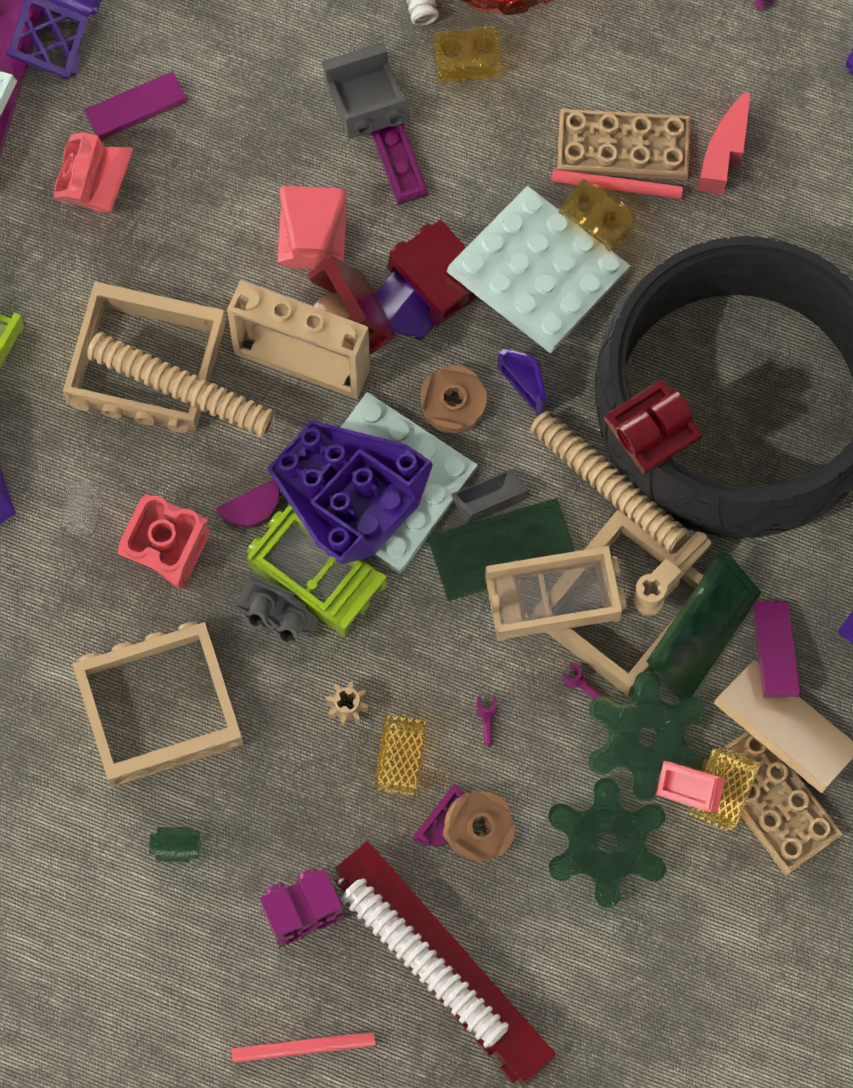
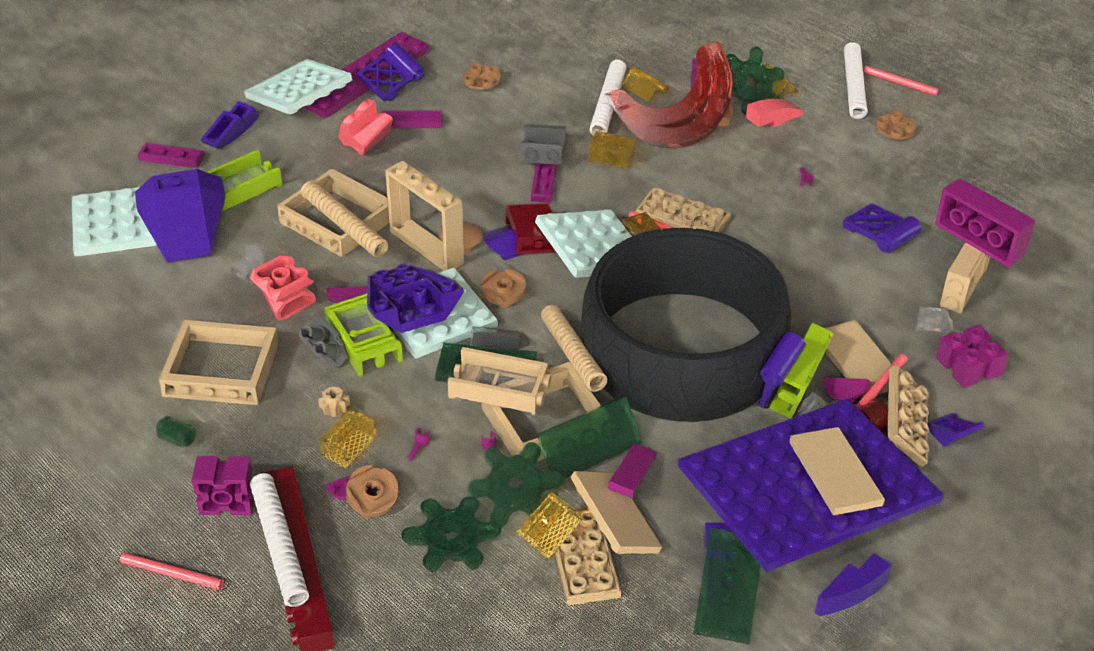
camera: 25 degrees right, 30 degrees down
(311, 225) = (475, 185): coral piece -> none
(357, 298) = (474, 220): dark red panel -> none
(525, 376) = (553, 284): dark purple slope -> none
(654, 426) = (606, 292): dark red plate -> none
(667, 575) = (575, 398): tan connector -> none
(690, 786) = (525, 512): coral tile -> none
(725, 147) = (749, 225): coral slope -> none

